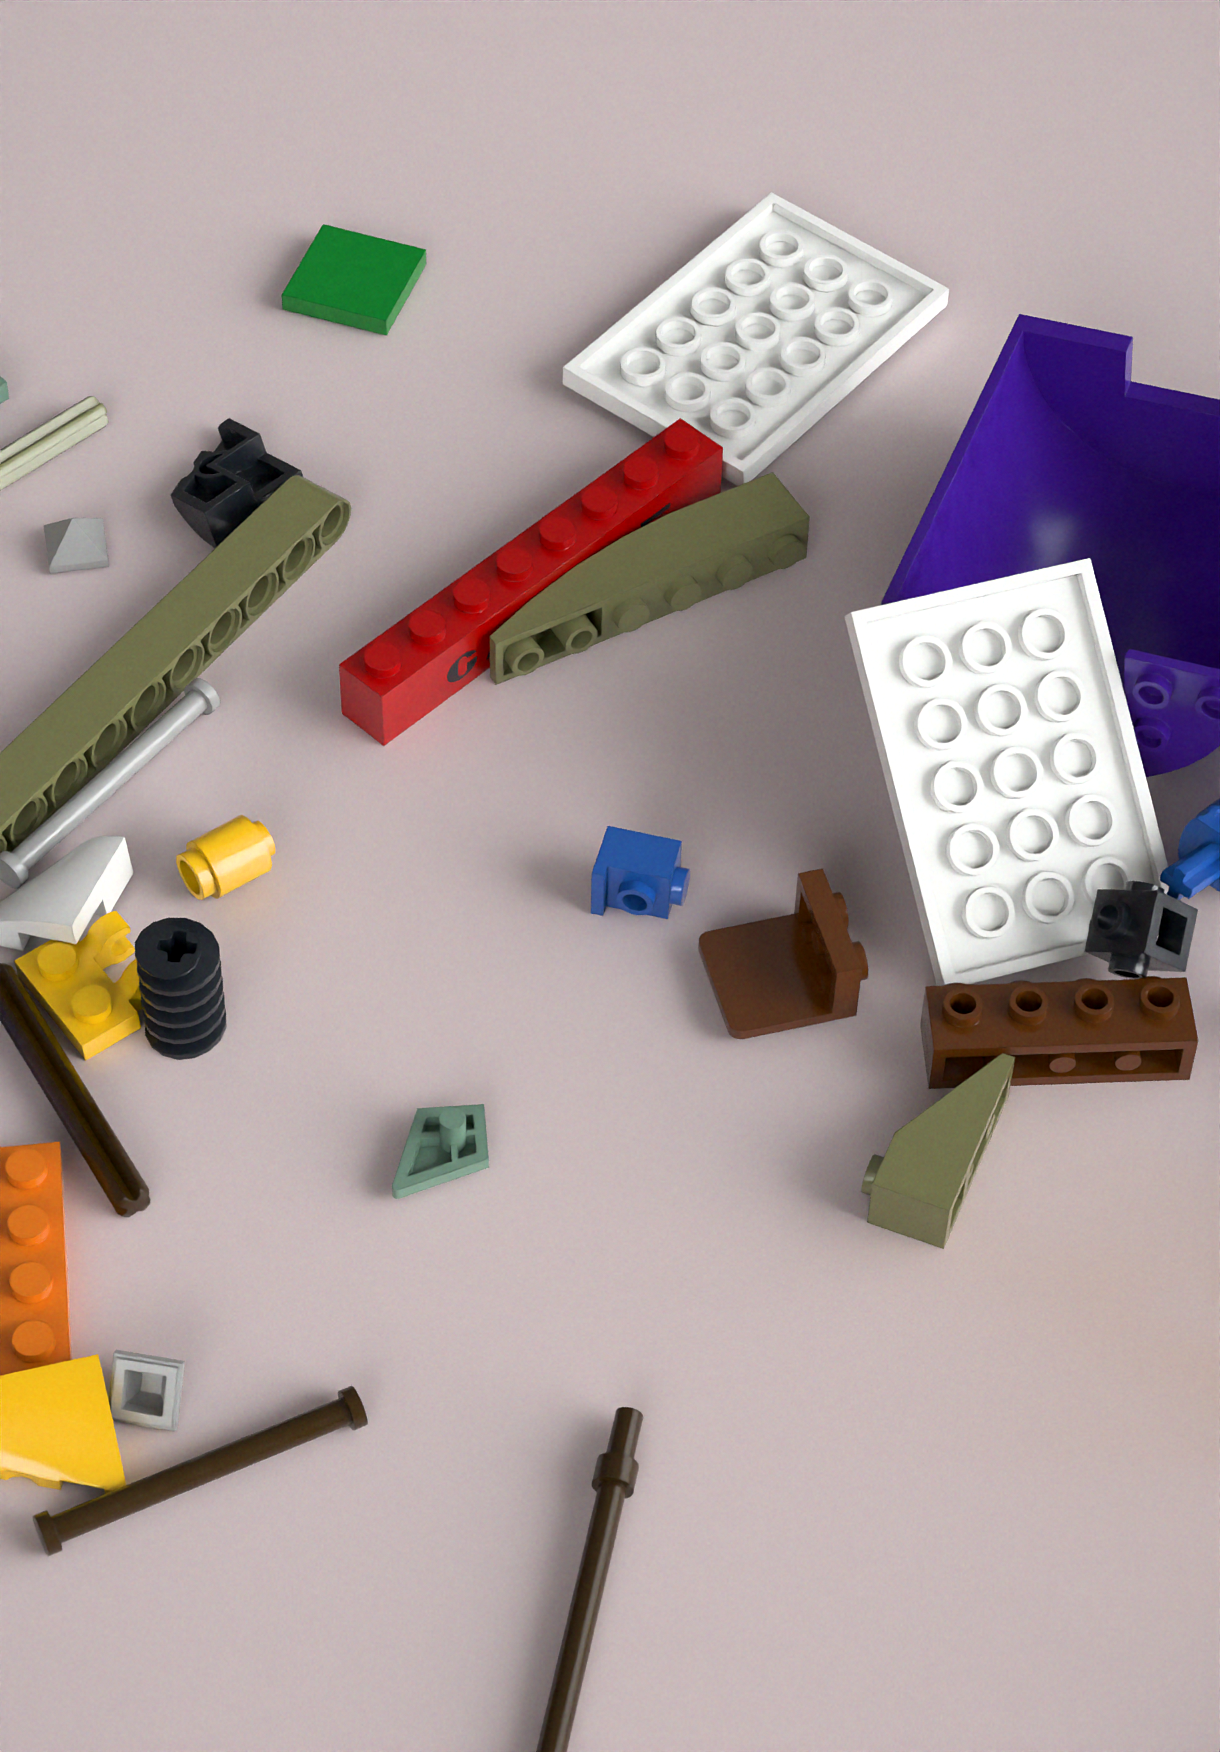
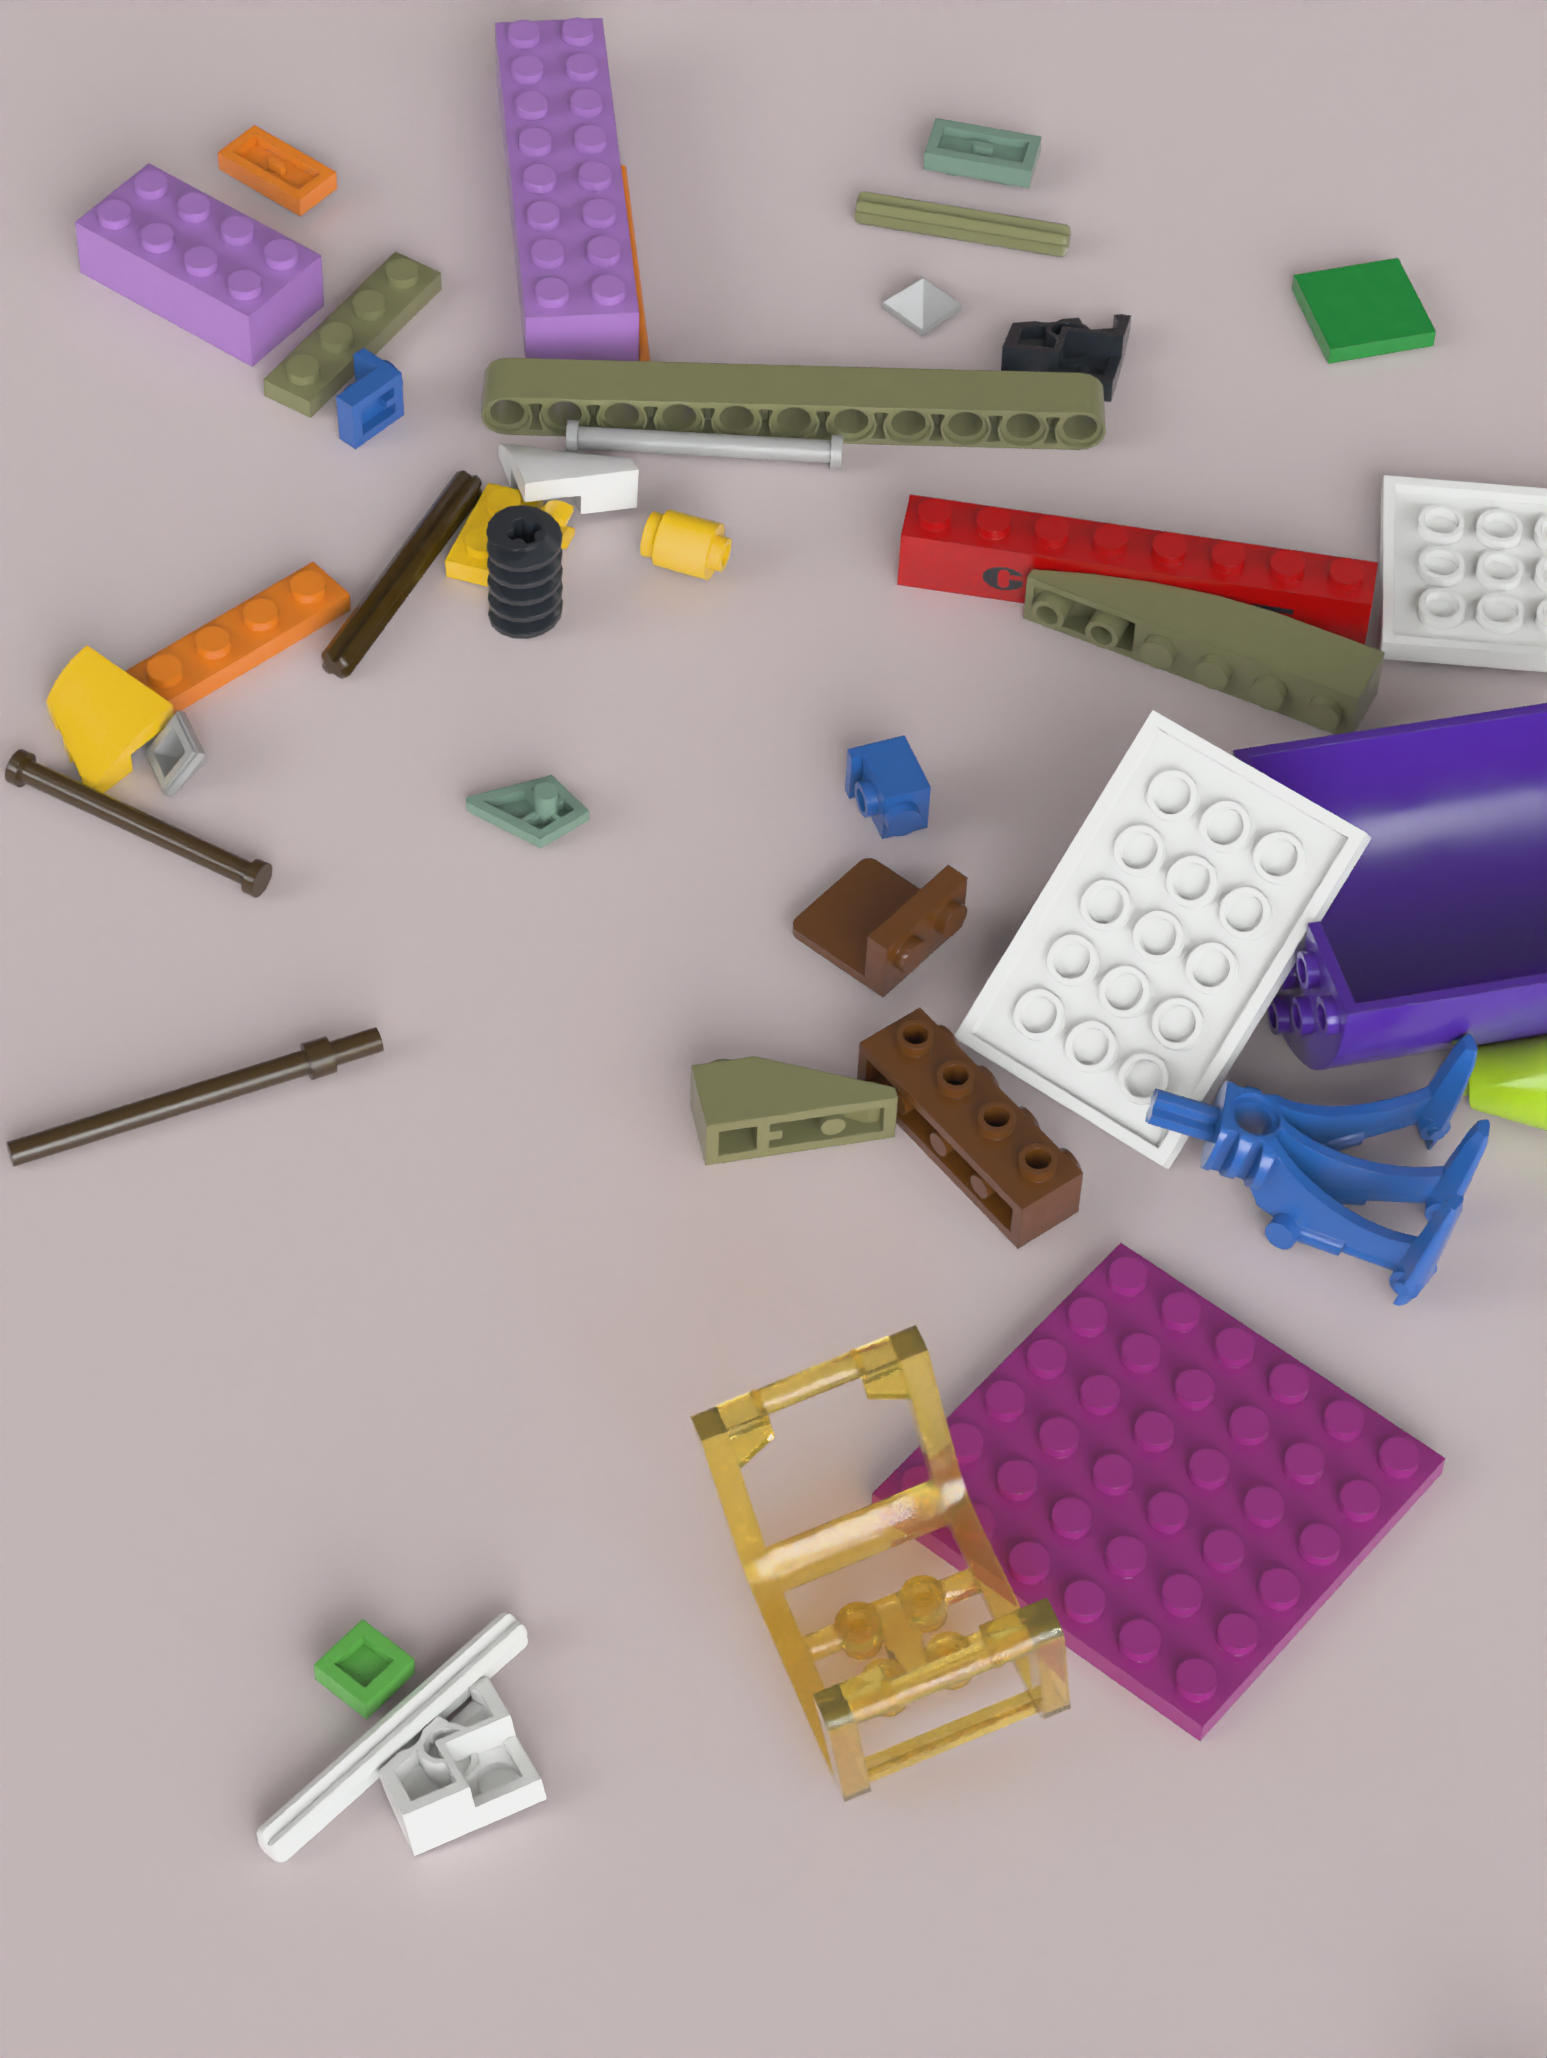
camera: 55 degrees right, 0 degrees up
(1127, 928) = (1106, 1135): black brick -> none

